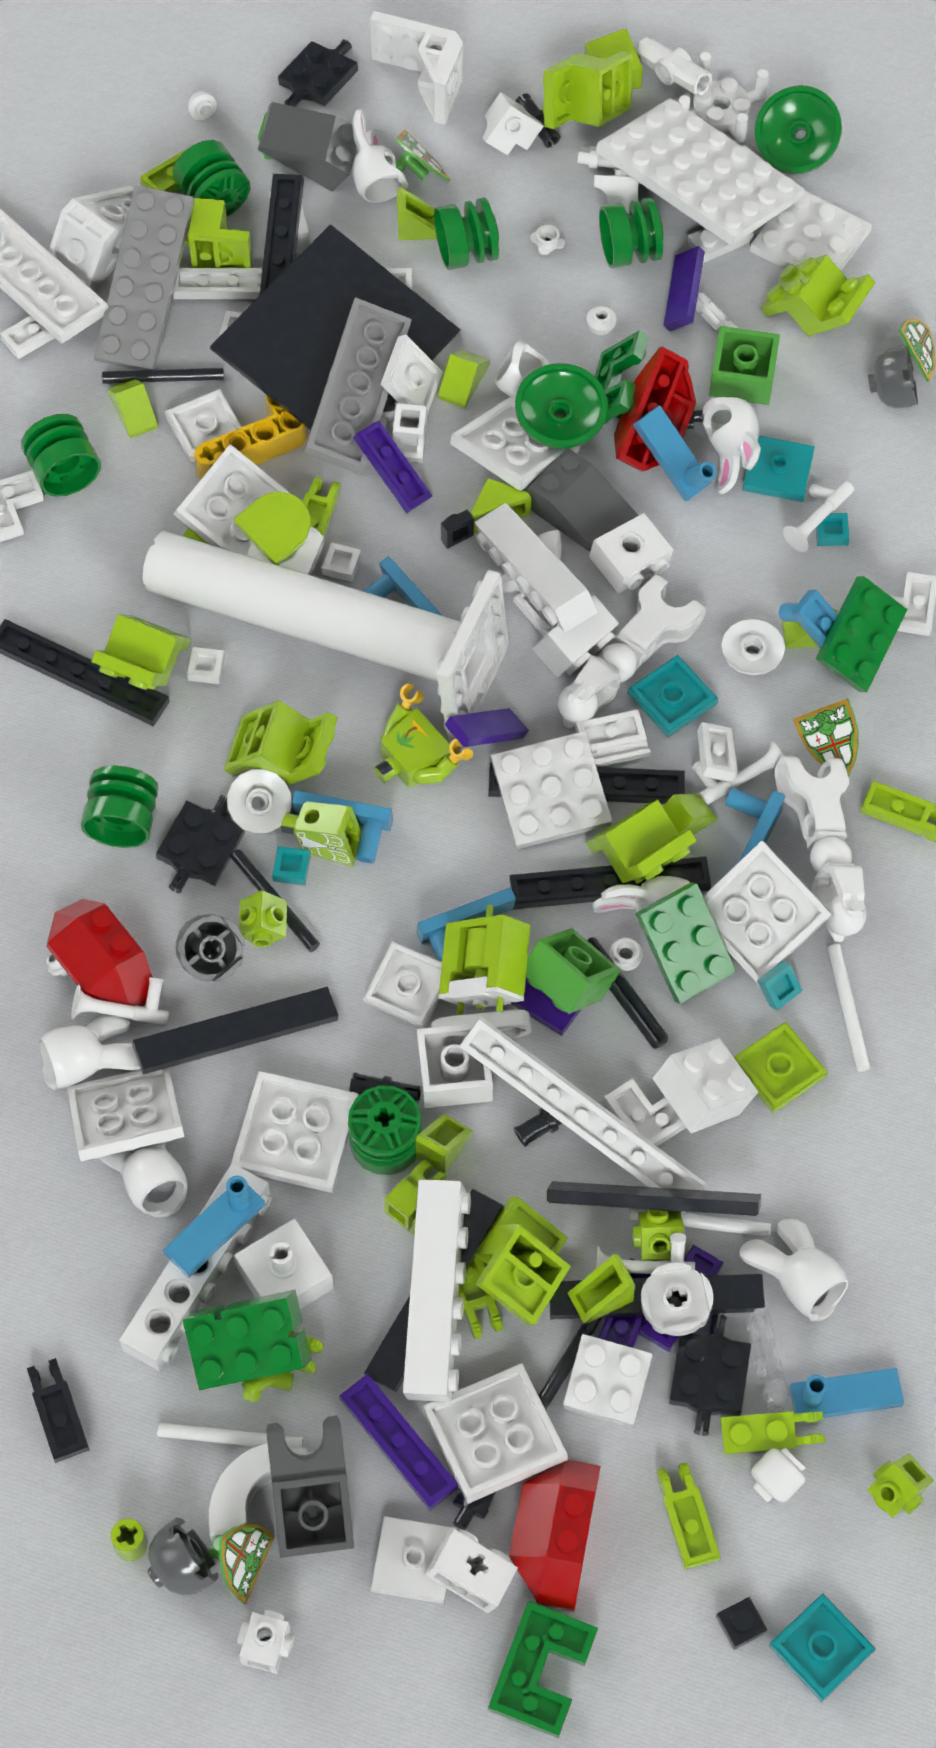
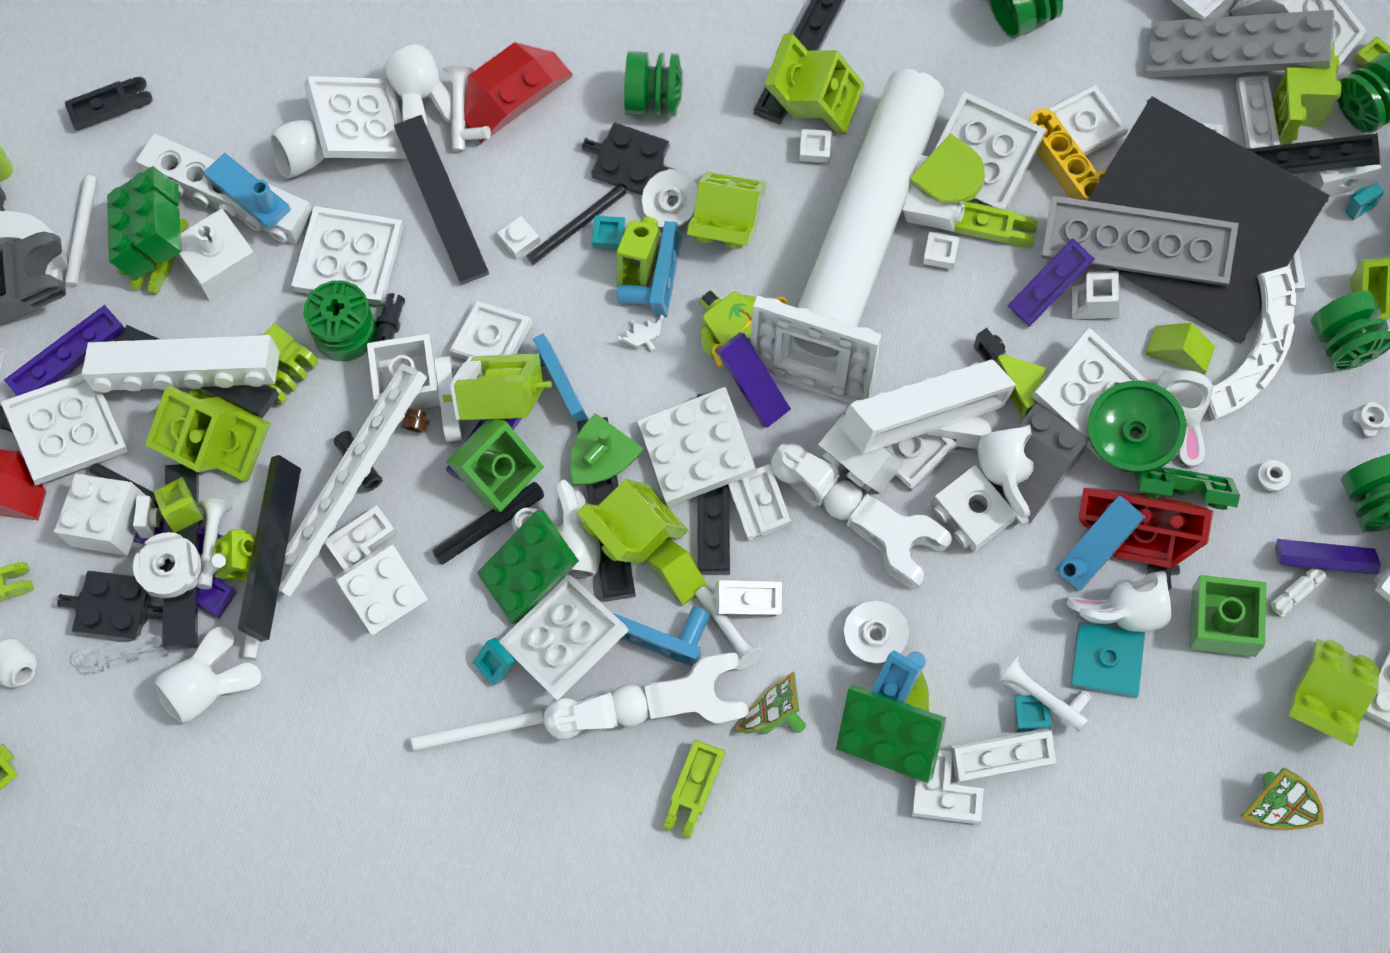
camera: 90 degrees right, 5 degrees up
(133, 407) = (1100, 59): lime slope -> none
(168, 375) = (1139, 67): black bar -> none
(209, 947) = (514, 166): dark grey cylinder -> none
(263, 918) = (547, 210): lime brick -> none
(285, 958) = (518, 237): none -> white plate
(321, 210) = (1364, 200): none -> teal plate
(395, 579) = (920, 301): dark azure piece -> none
(411, 374) = (1160, 291): white plate -> none
(412, 840) = (642, 334): none -> white piece
(442, 1142) = (334, 371): lime slope -> none
(467, 301) = (1269, 347): none -> white tile
(551, 881) = (601, 452): none -> bright green shield
(595, 510) = (1006, 465): none -> white piece
(615, 1329) = (146, 517): none -> white plate
(672, 696) = (814, 557): teal plate -> none
(767, 1431) = (52, 657): lime hinge -> none
(780, 1067) = (410, 663): lime plate -> none
(848, 1393) = (87, 725): dark azure piece -> none
(874, 551) = (1003, 754): none -> white plate
(894, 378) = (1234, 778): dark grey cylinder -> none

